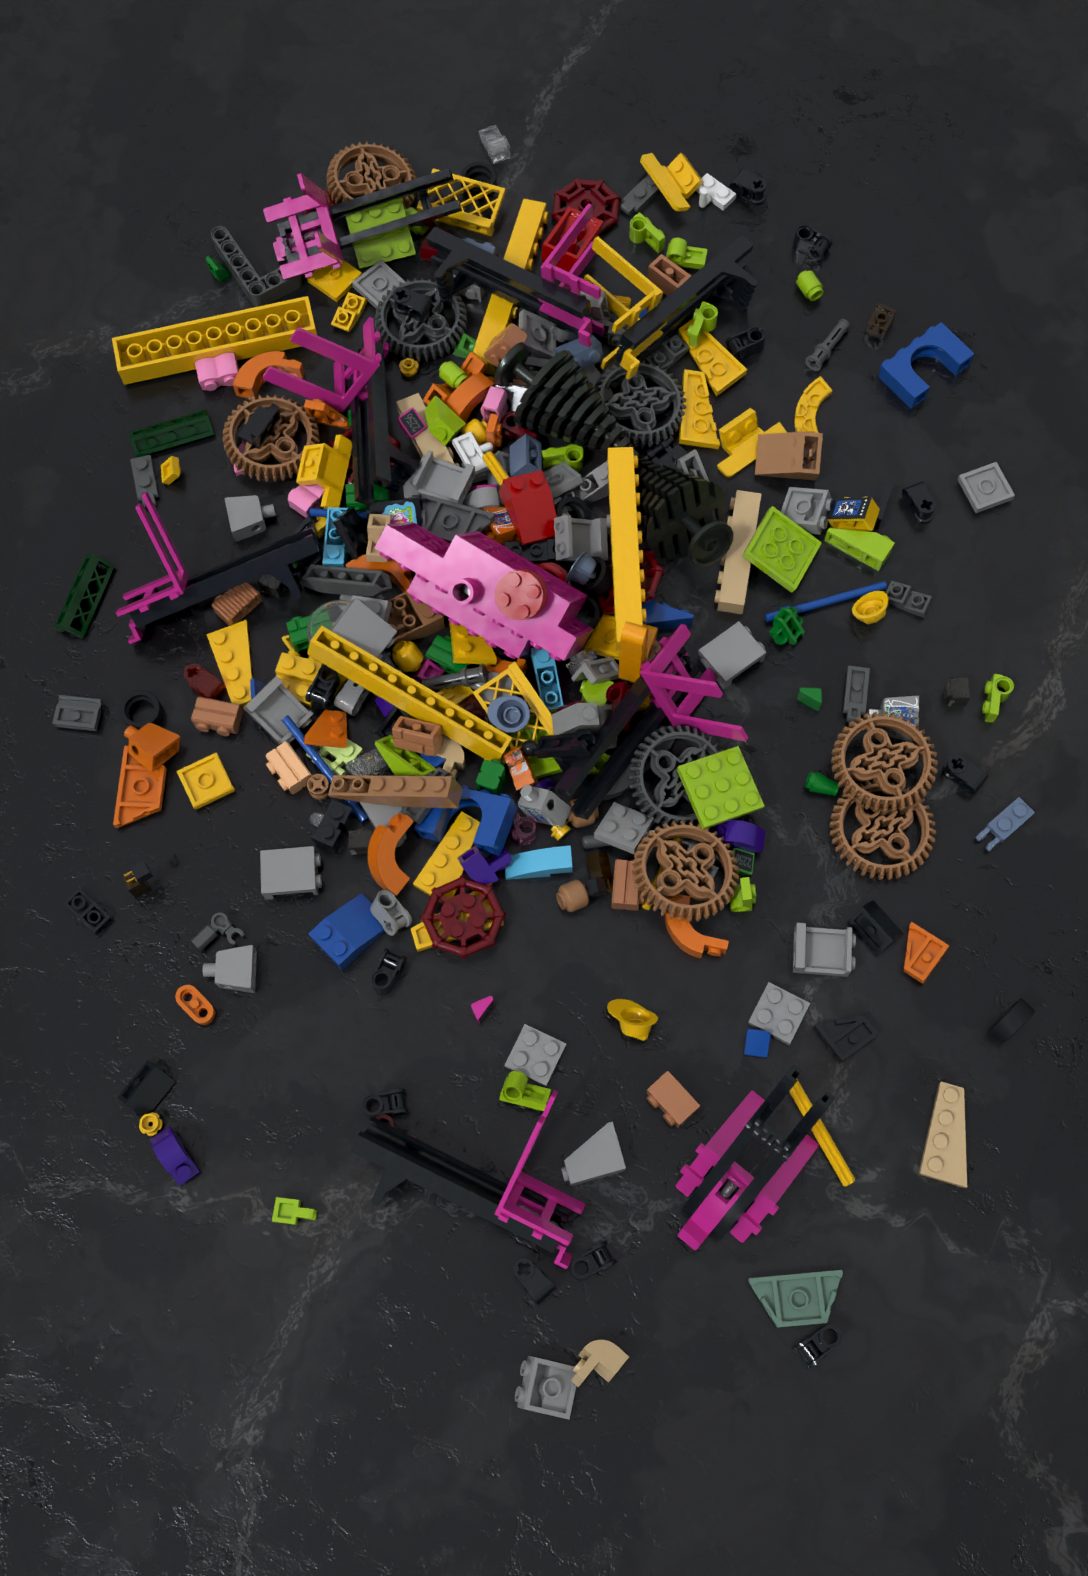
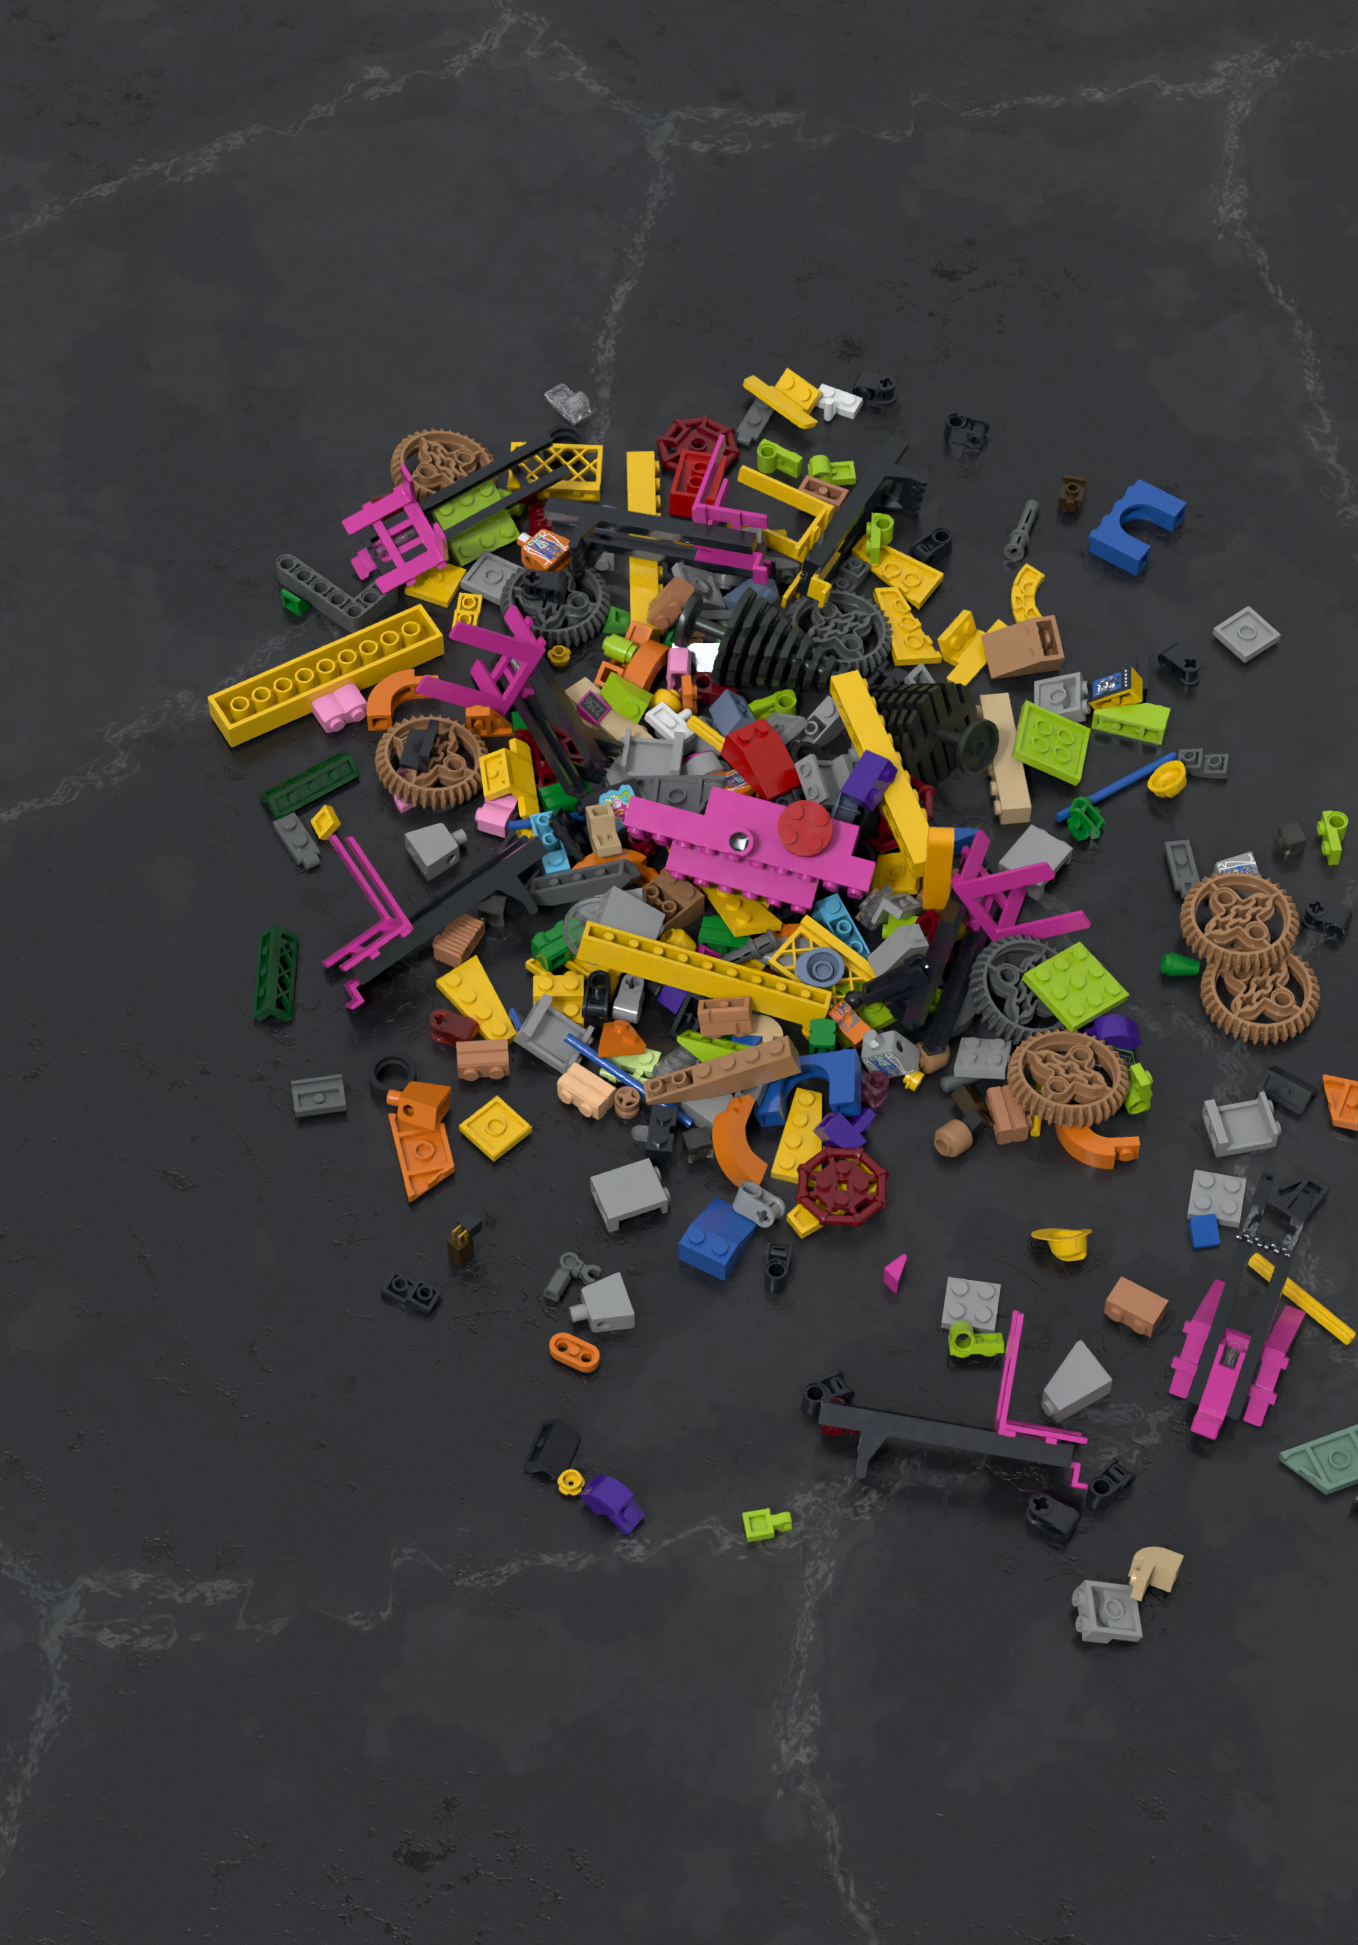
camera: 20 degrees left, 15 degrees down
(420, 273) = (544, 551): none -> orange torso
(540, 863) = (905, 1116): medium azure slope -> none
(604, 554) = (869, 780): none -> dark purple brick
(810, 285) = (980, 474): lime brick -> none
(811, 697) = (1136, 883): green slope -> none

